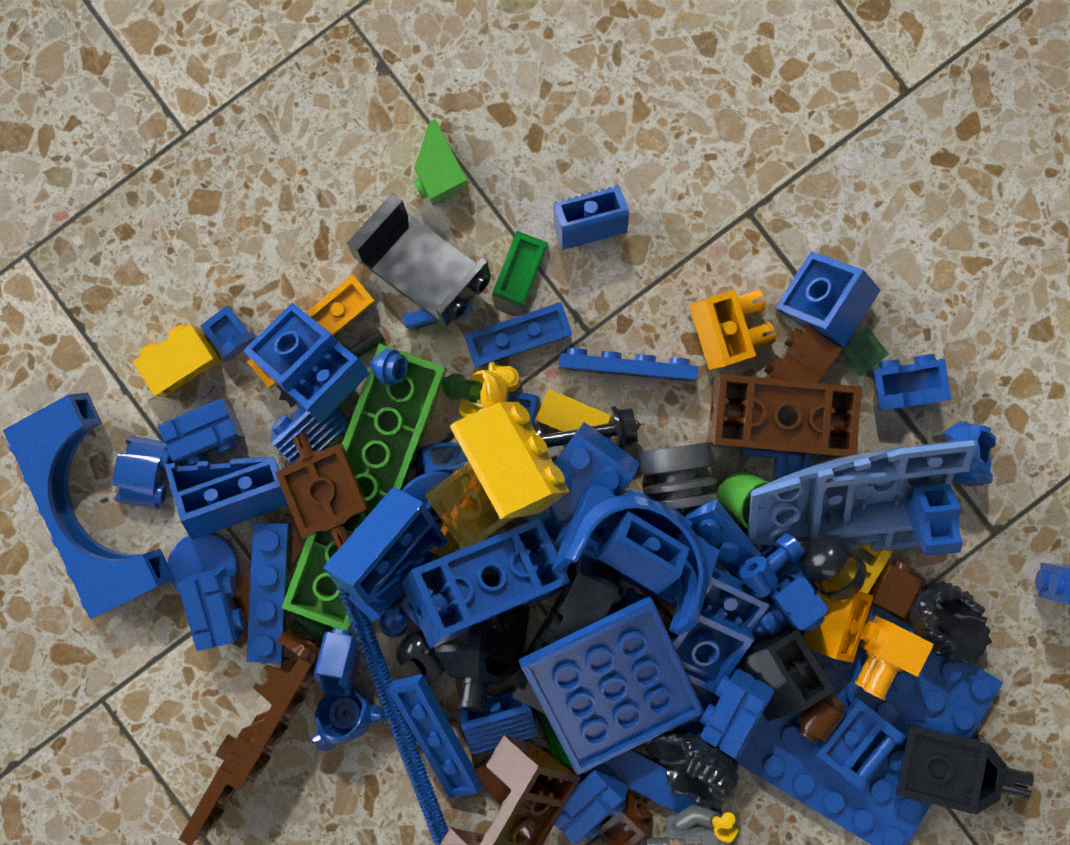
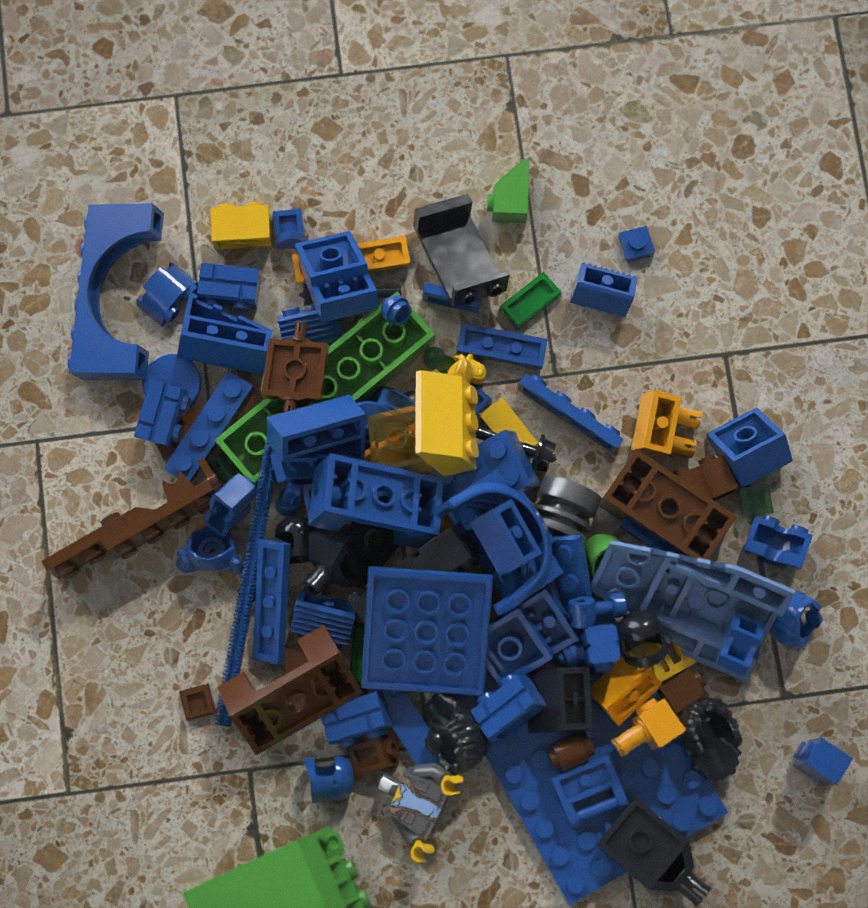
camera: 25 degrees right, 10 degrees down
(595, 146) = (636, 244): none -> blue plate

